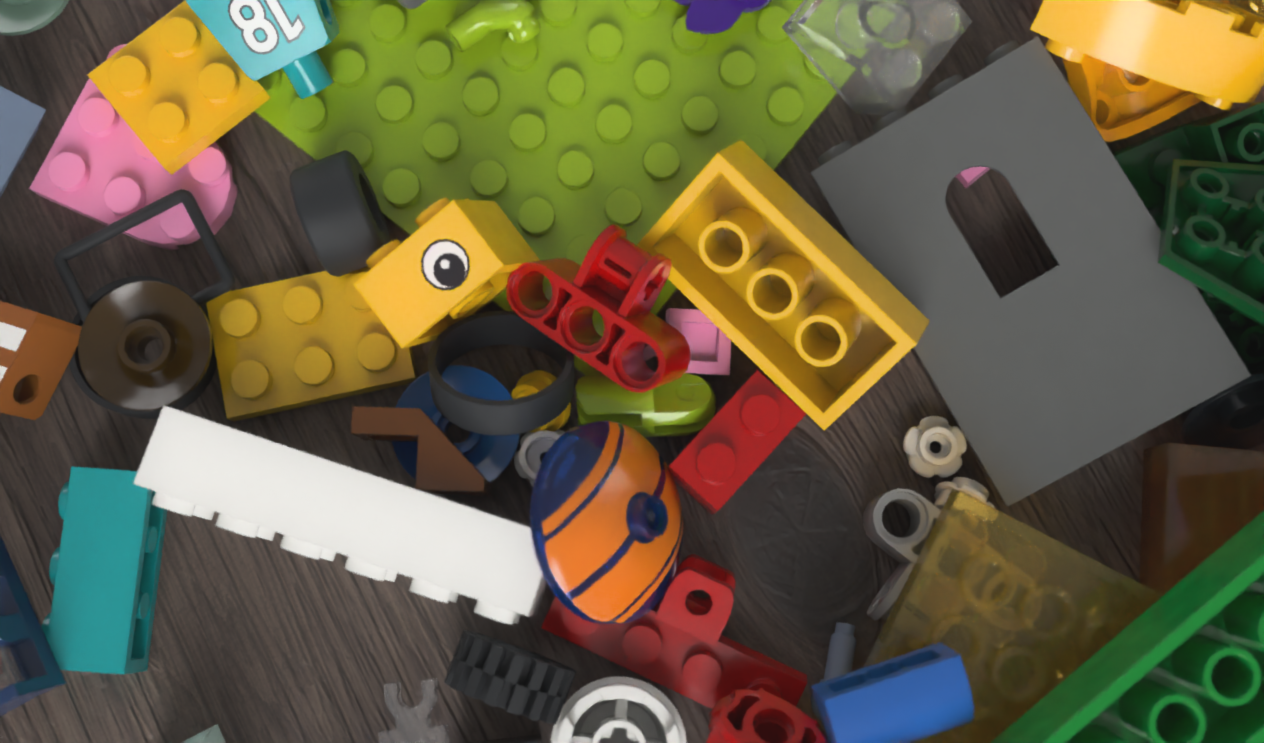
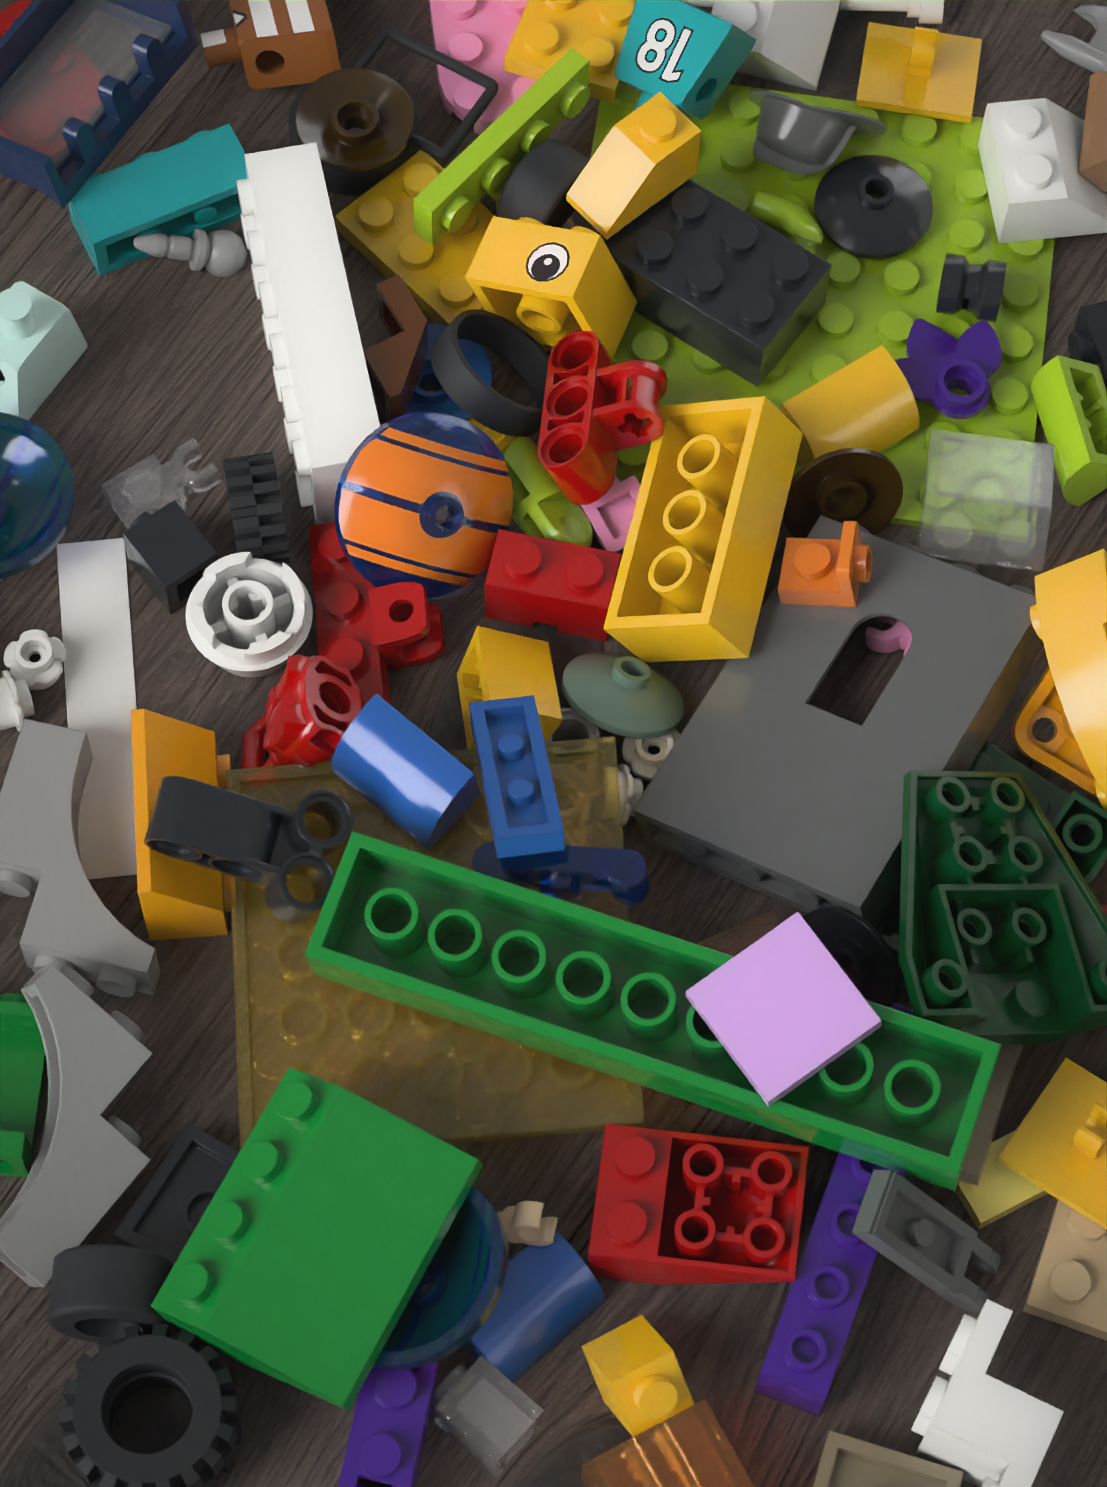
camera: 60 degrees right, 15 degrees down
(194, 545) = (220, 252): none -> light grey bar
(271, 228) = (494, 154): none -> lime plate
(389, 120) = (636, 166): none -> yellow slope
(495, 122) = (718, 278): none -> black brick
(721, 85) = (854, 408): none -> yellow brick
(799, 137) = (844, 487): none -> dark brown dish
(829, 549) = (508, 667): none -> yellow brick
(879, 465) = (622, 695): none -> sand green dish
(883, 201) = (825, 569): none -> orange bracket
(982, 615) = (516, 777): none -> blue plate
(1077, 621) = (571, 870): none -> clear blue plate

